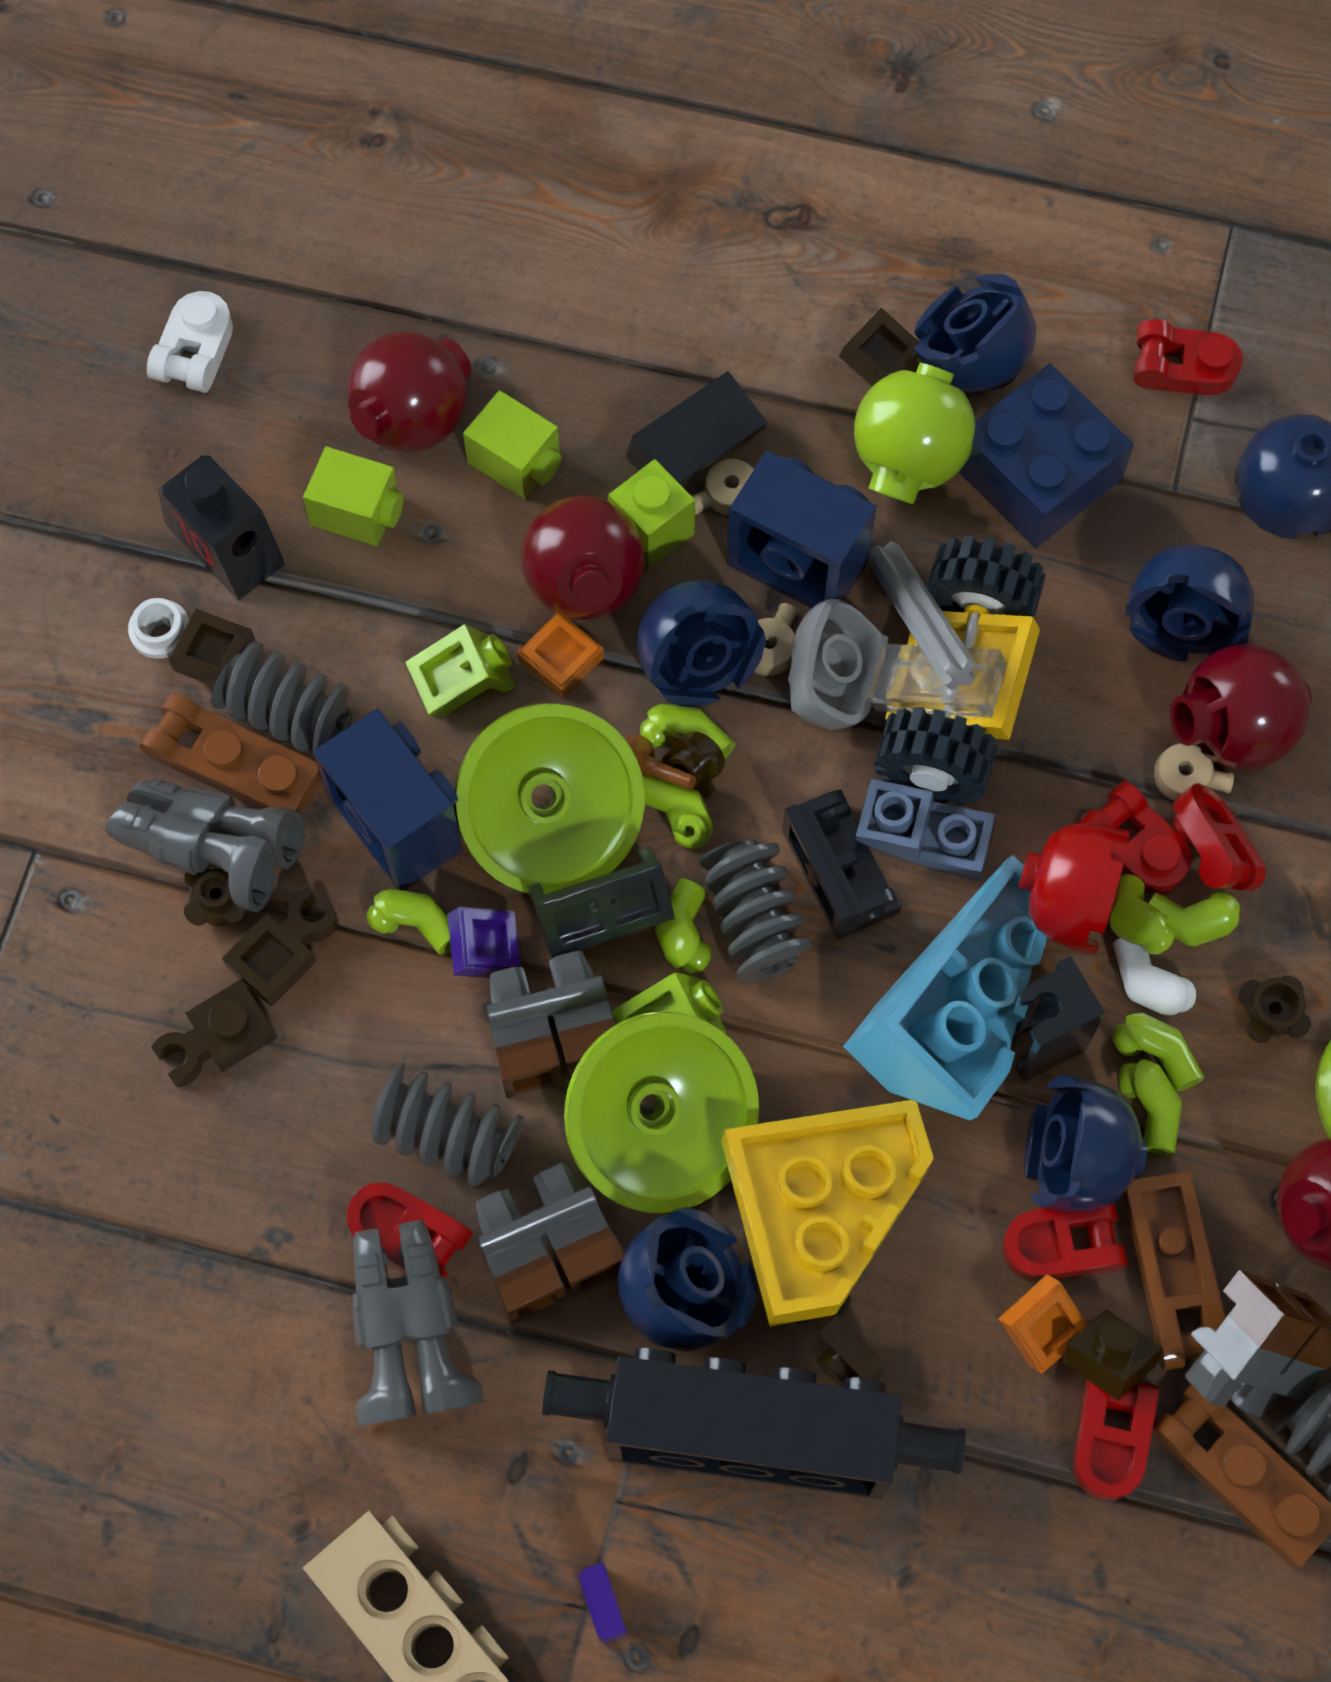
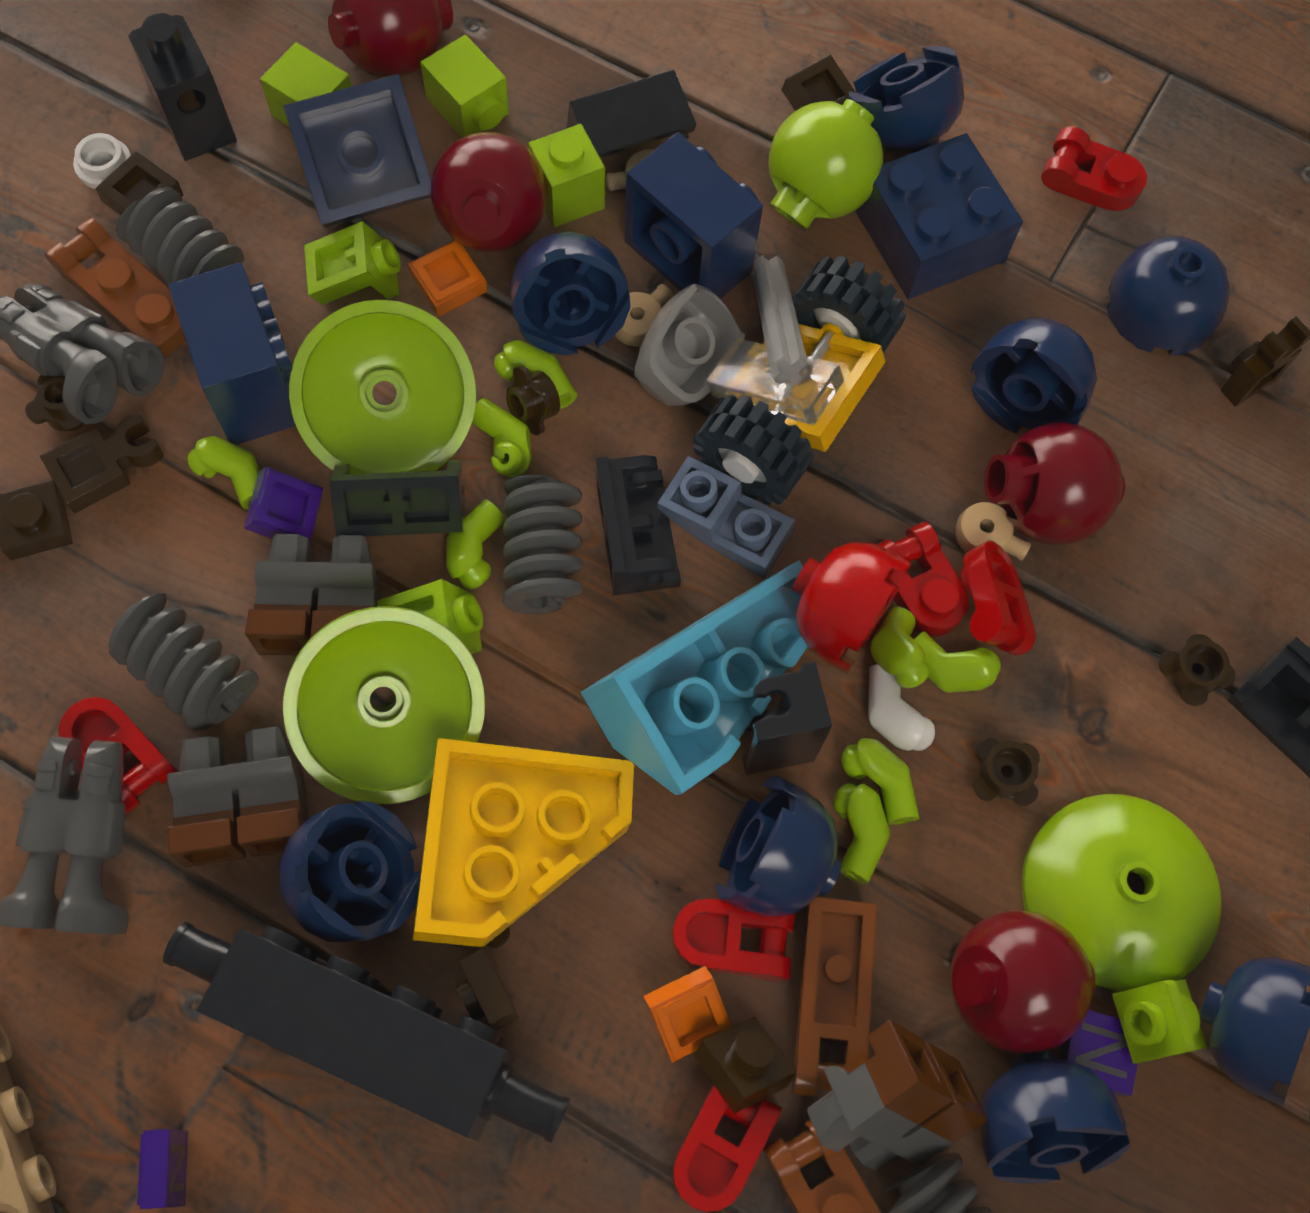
camera: 10 degrees right, 0 degrees up
(438, 551) = (359, 150): none -> dark blue brick
(652, 767) = (490, 390): dark orange hand -> none

